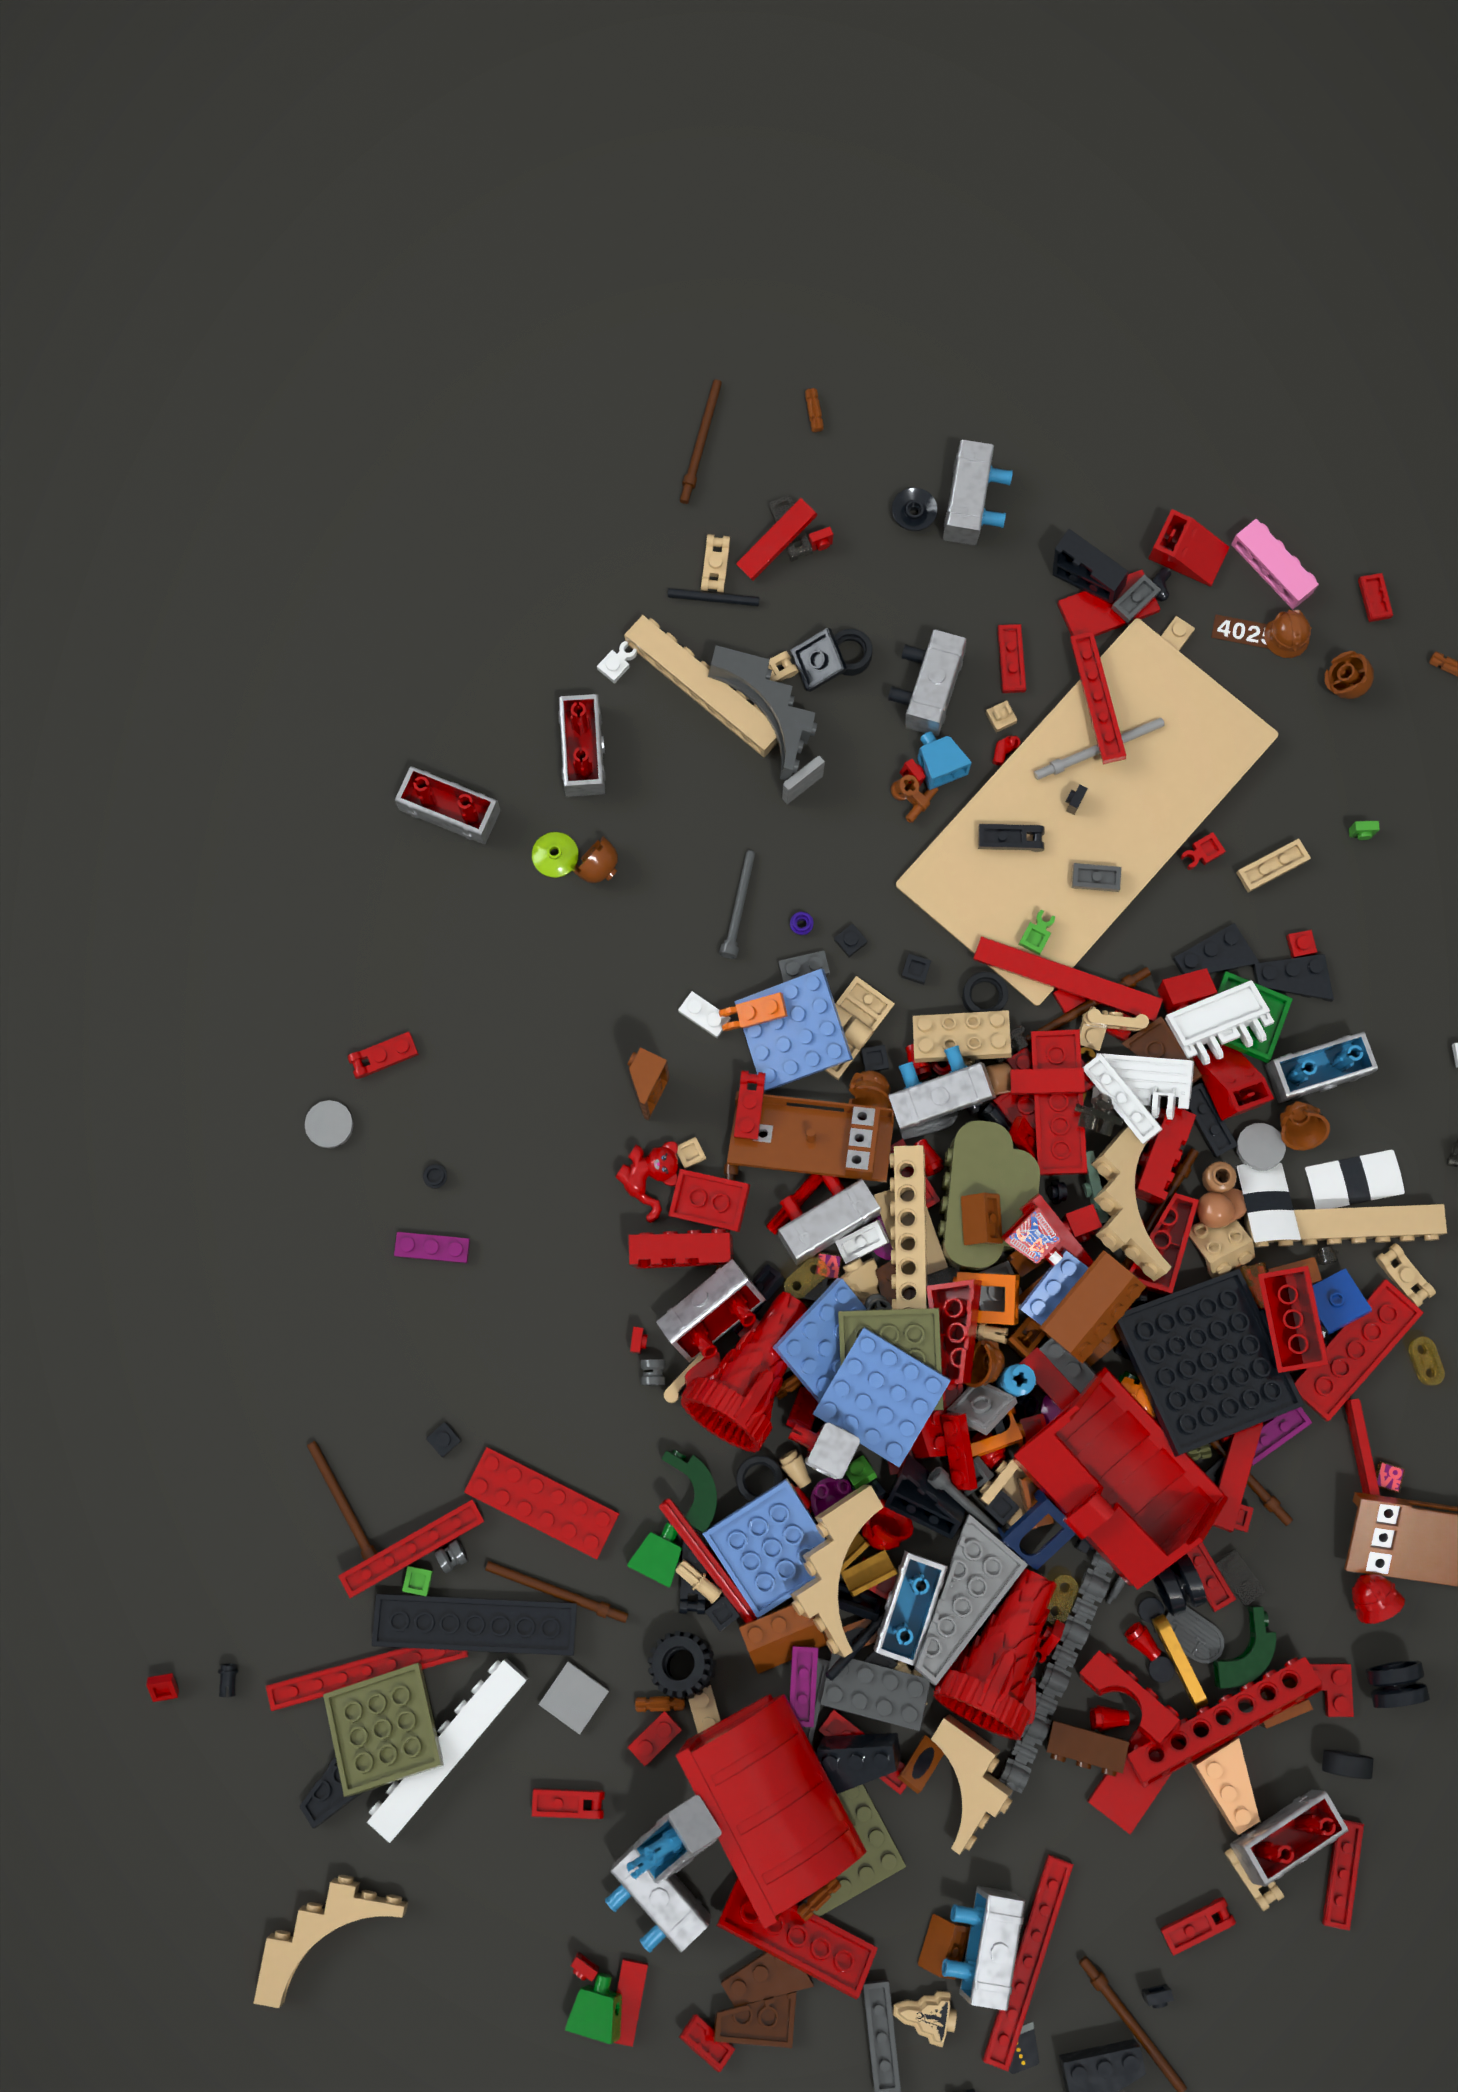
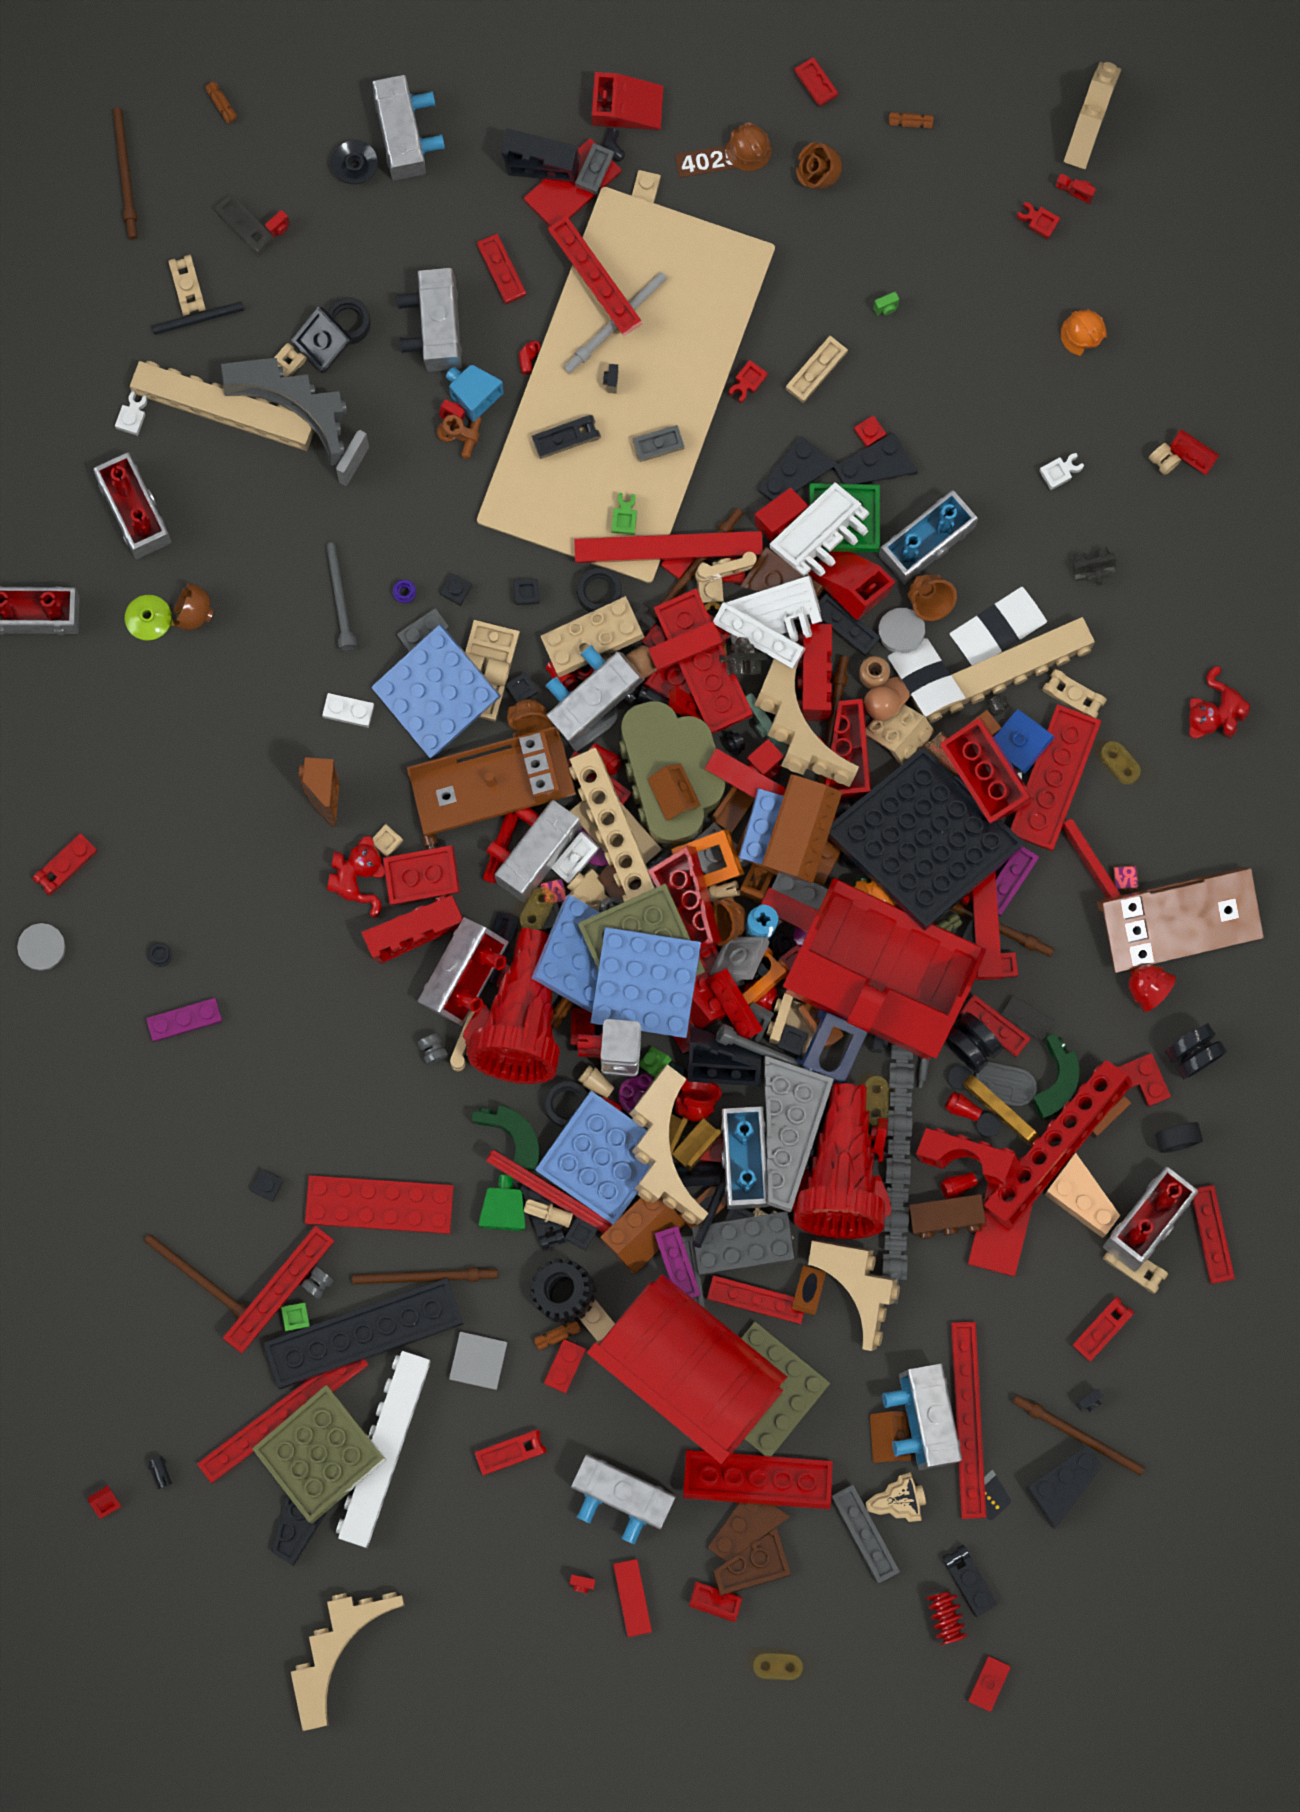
camera: 25 degrees left, 0 degrees up
(597, 2011) = (608, 1613): green torso -> none
(639, 1340) = (408, 1026): red plate -> none
(675, 1840) = (616, 1428): piece -> none
(749, 1106) = (424, 776): red plate -> none
(755, 1012) = (395, 688): orange hinge -> none
(777, 539) = (236, 240): red tile -> none
(818, 1899) = (763, 1438): dark orange axle -> none
(858, 1758) = (751, 1304): black wedge -> none
(1001, 716) = (513, 327): tan tile -> none
(1034, 1237) = (726, 787): torso -> none
(1275, 563) = (711, 86): bright pink brick -> none

